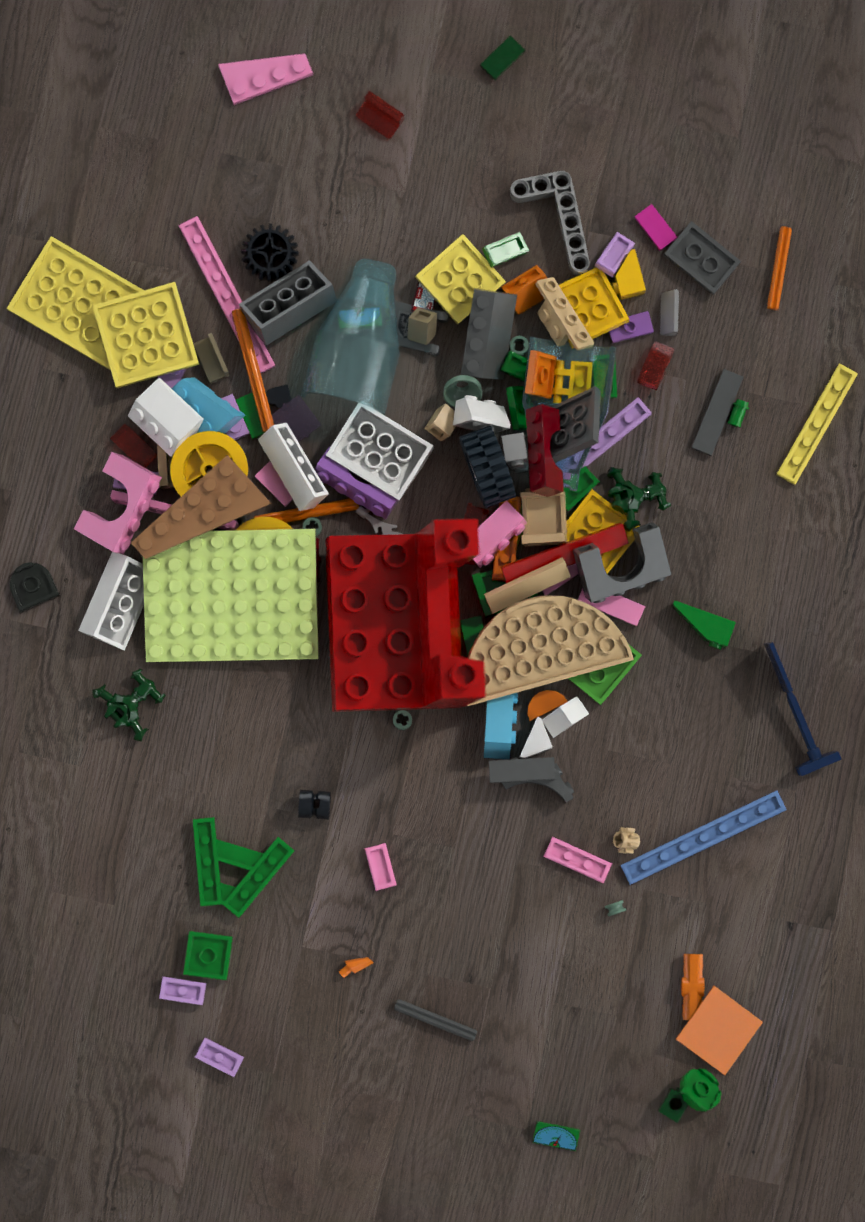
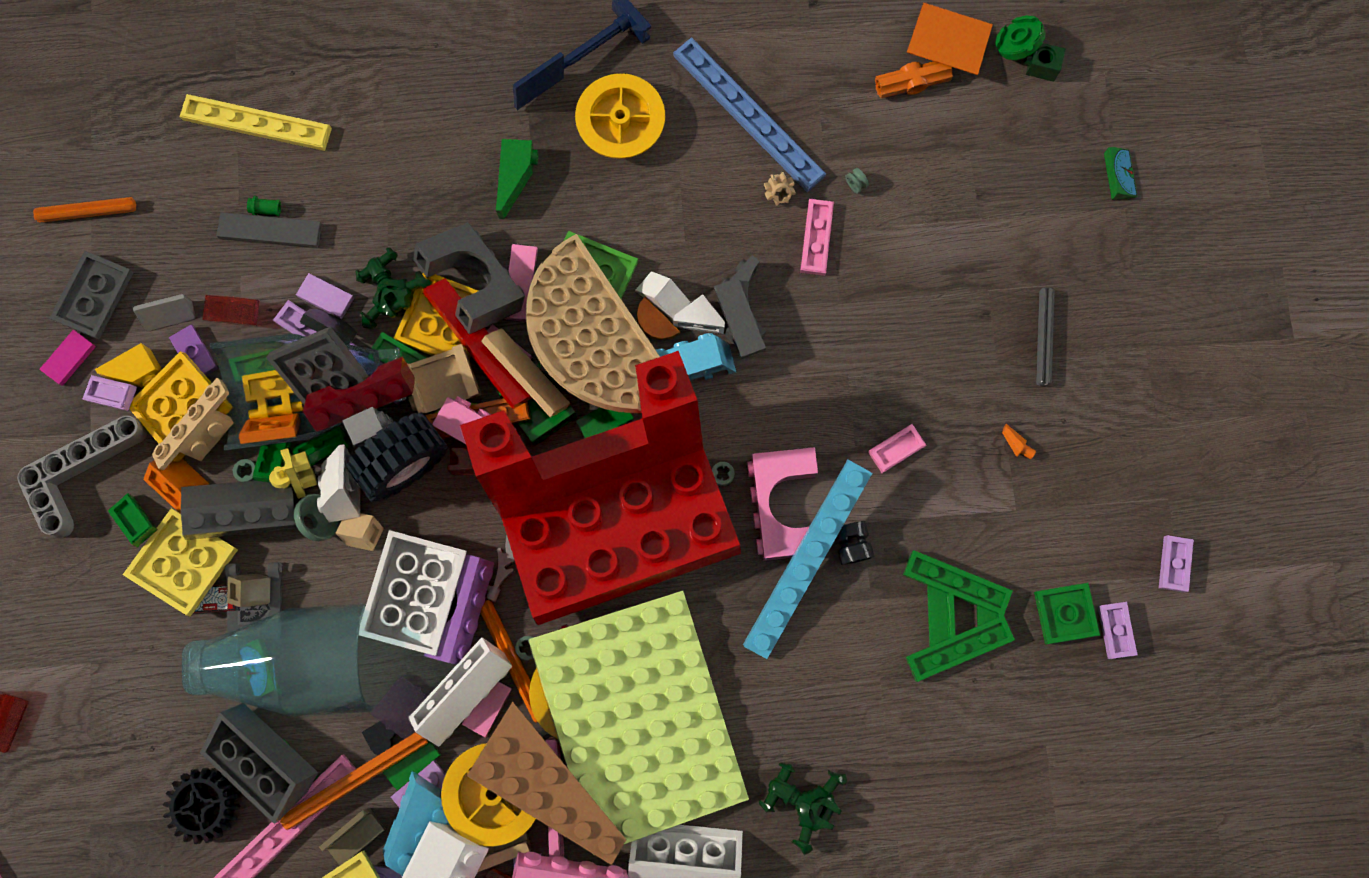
camera: 110 degrees left, 5 degrees down
(312, 762) = (807, 559): none -> medium azure plate
(336, 745) = (767, 472): none -> bright pink arch
(502, 386) = (295, 472): none -> light yellow hips
(614, 441) = (319, 320): none -> pearl dark grey tile
(646, 443) = (325, 296): none -> lavender tile
(742, 713) = (620, 116): none -> yellow piece

